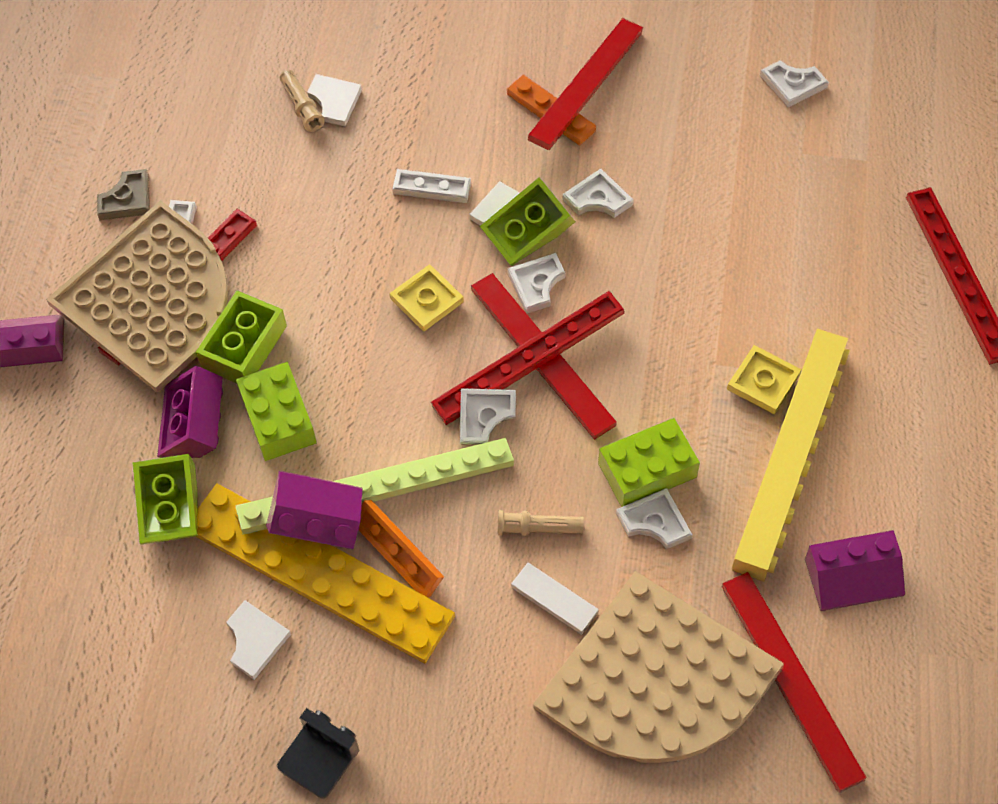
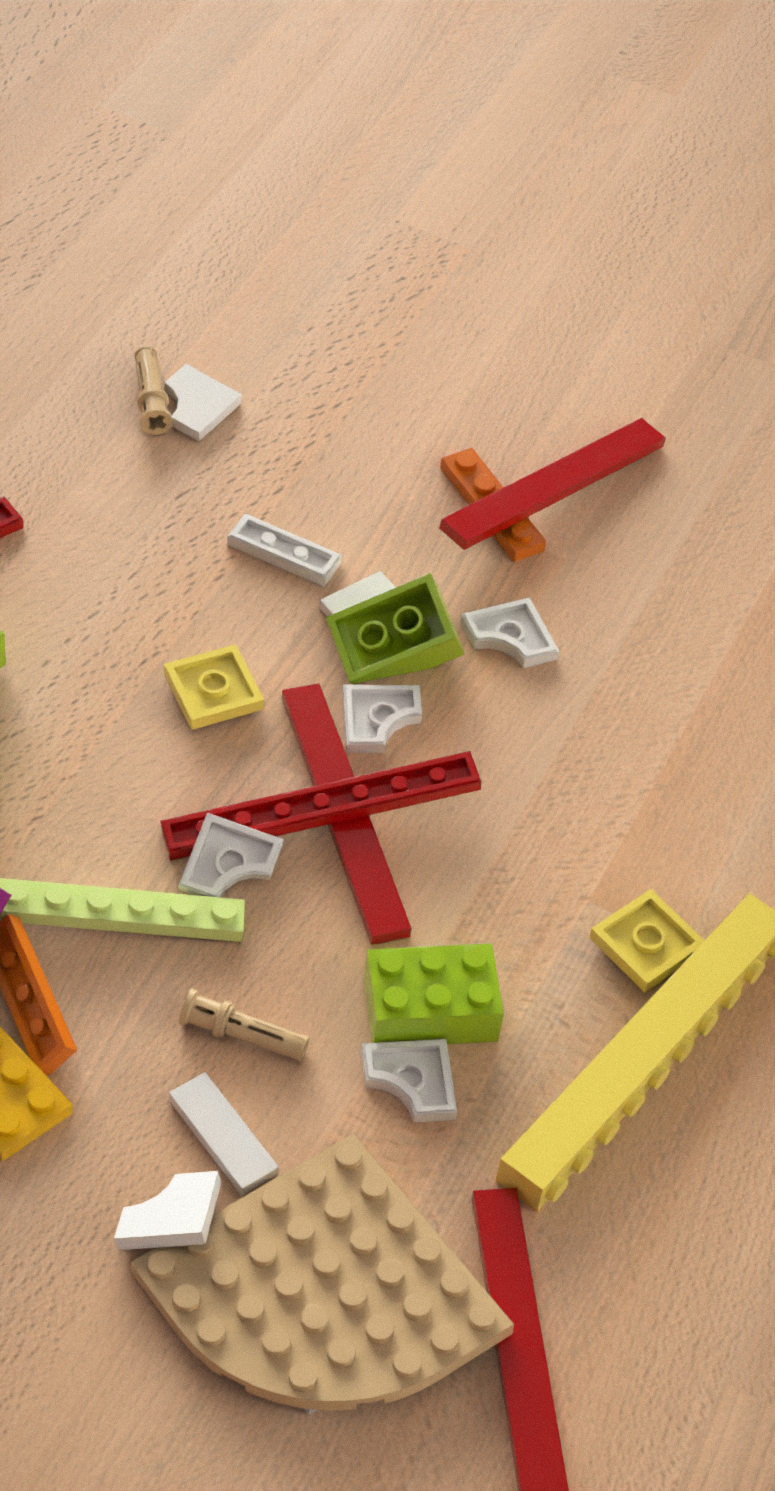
camera: 10 degrees right, 10 degrees down
(549, 664) = (174, 1217): none -> white tile
(856, 570) = (676, 1236): magenta slope -> none

